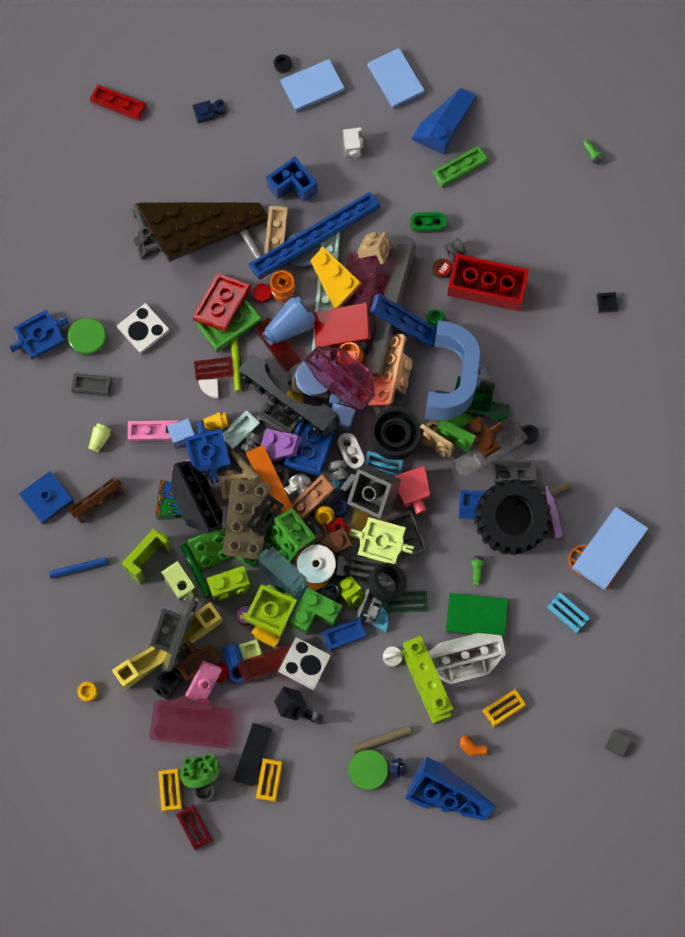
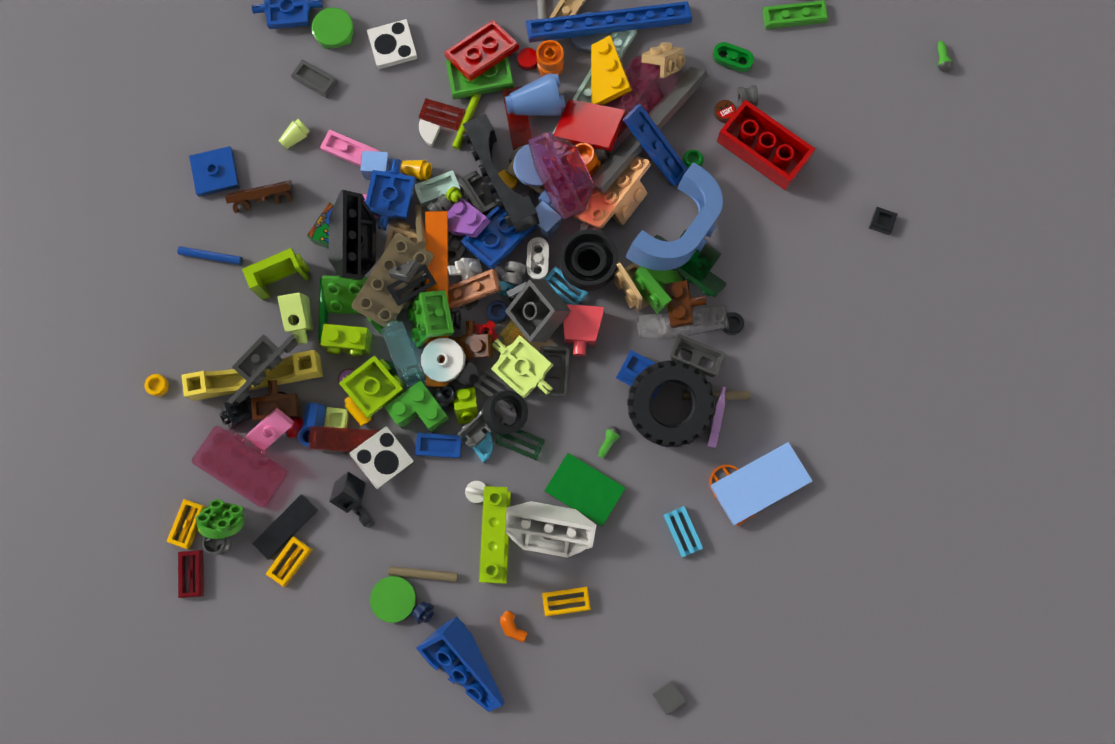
camera: 30 degrees right, 5 degrees up
(256, 506) = (406, 271): none -> dark grey tile
(259, 429) = (453, 194): none -> lime arm
(324, 515) = (478, 312): yellow plate -> none

